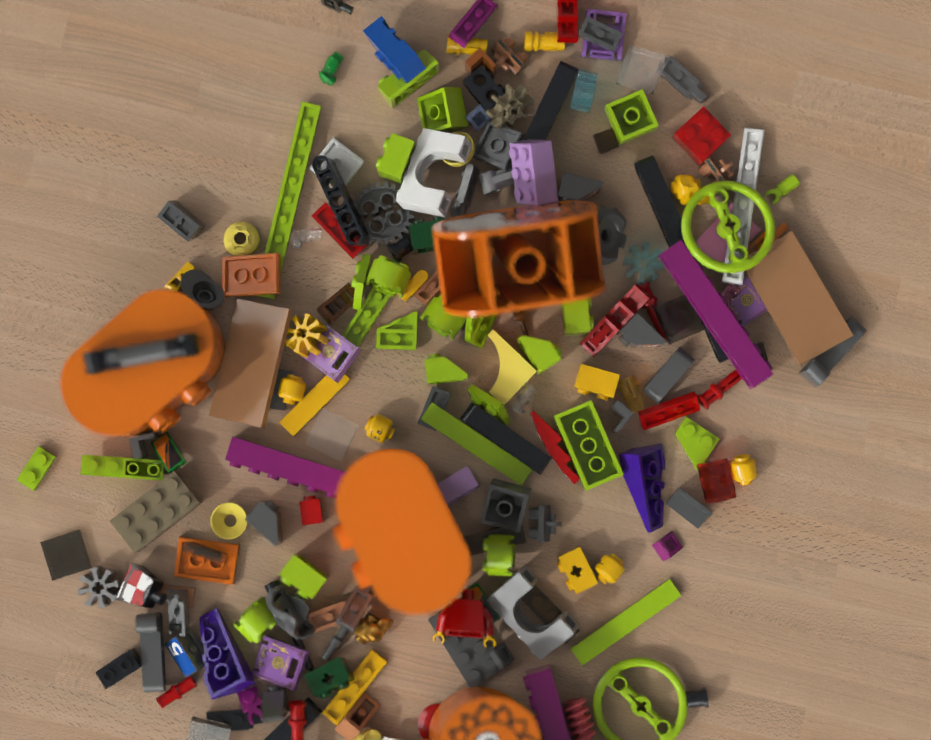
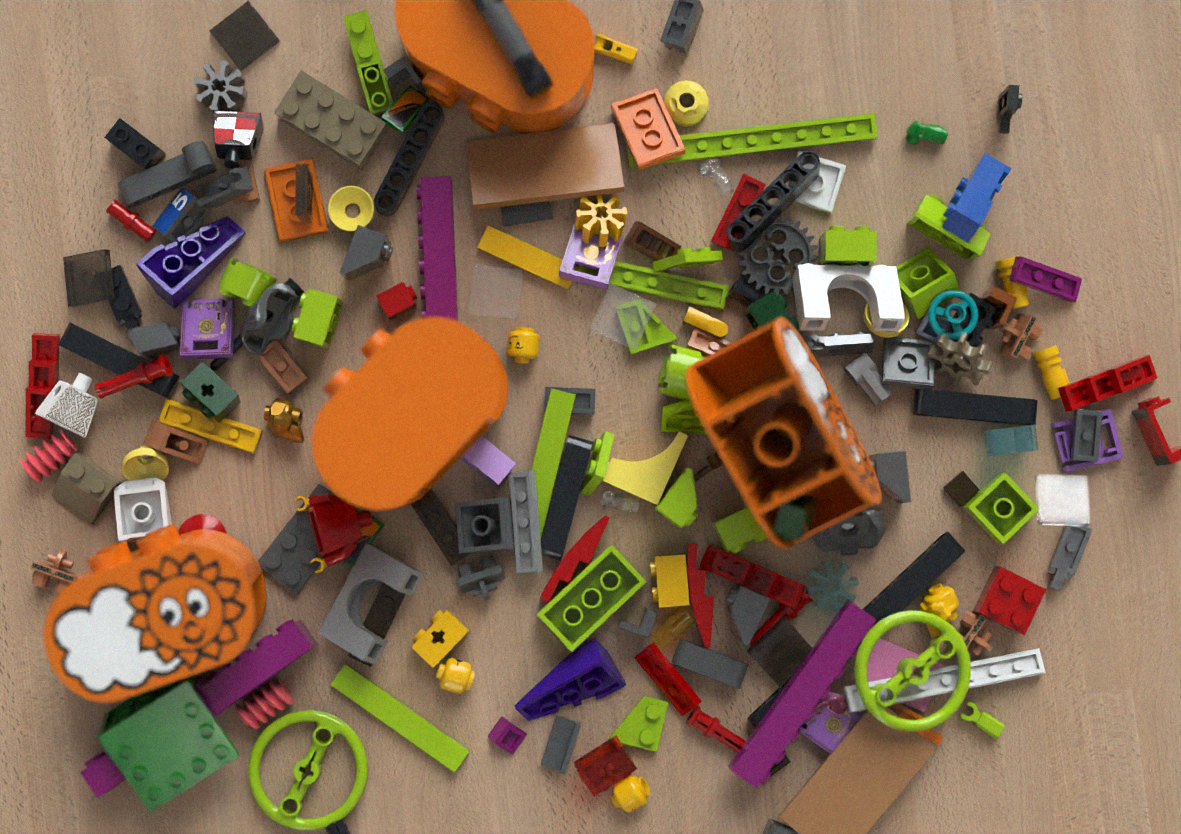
camera: 60 degrees right, 0 degrees up
(197, 460) = (409, 146): none -> black beam
(202, 289) = (609, 78): dark grey piece -> none
(250, 702) = (149, 310): magenta plate -> none
(291, 389) = (531, 225): yellow head -> none
(335, 643) = (254, 385): dark grey bar -> none
(355, 607) = (300, 392): flat silver hinge -> none
(386, 345) = (622, 317): none -> clear tile
(388, 276) = (704, 289): lime brick -> none
(442, 370) = (617, 393): lime slope -> none
(474, 92) = (960, 308): none -> teal piece
(499, 555) = (423, 539): lime brick -> none
(501, 656) = (307, 585): dark grey tile -> none
(514, 474) = (525, 522): none -> light grey tile
(533, 172) = (892, 415): lavender brick -> none
(585, 271) = (795, 517): none -> dark green brick
(621, 365) = (701, 604): none -> red slope

